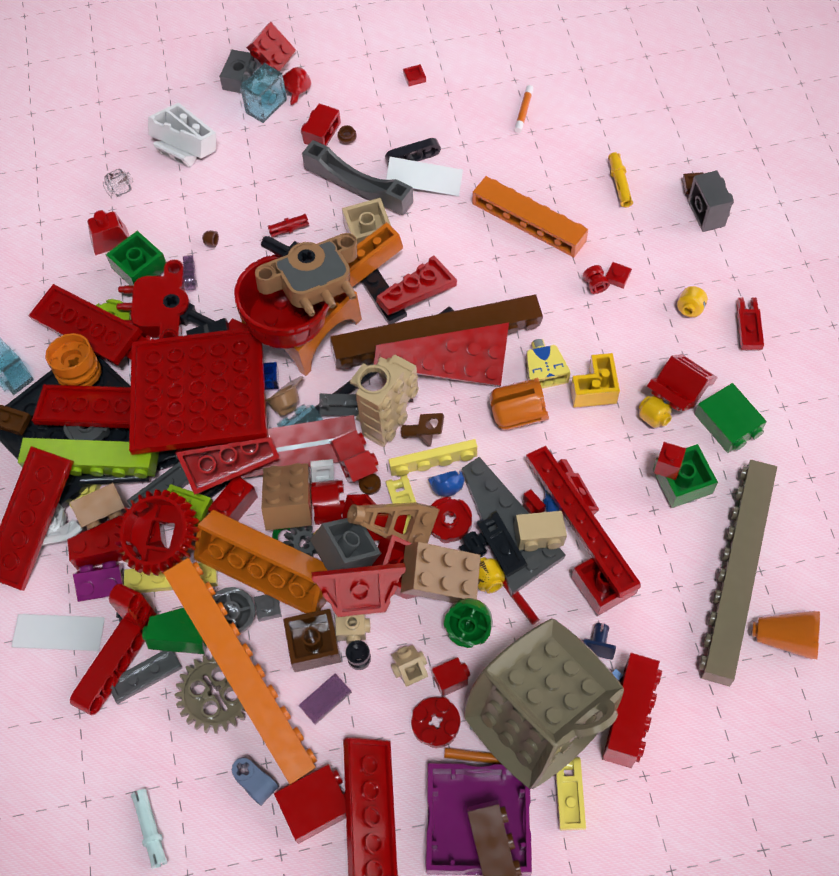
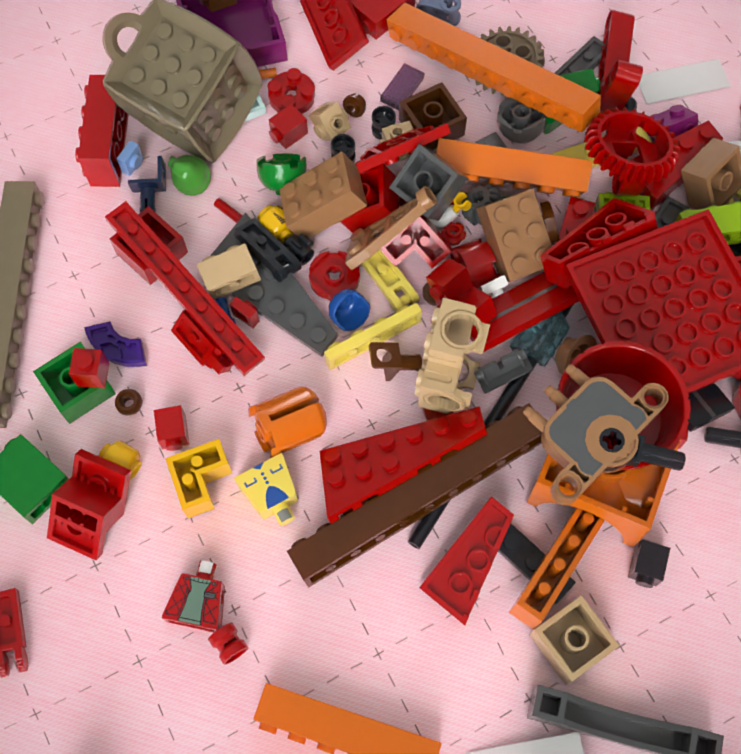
camera: 160 degrees right, 5 degrees up
(254, 504) = (549, 220): none -> reddish brown plate
(288, 225) = (686, 621): red pin -> none
(379, 684) = (354, 105): none -> reddish brown plate
(407, 630) = (345, 144): none -> black wheel
(611, 427) = (171, 428): none -> red brick
(613, 308) = (197, 600): none -> torso
(618, 274) = (199, 667): red plate -> none
(647, 455) = (125, 395): none -> reddish brown plate
(648, 509) = (115, 347): none -> dark purple tile
(692, 301) = (88, 641): yellow head -> none

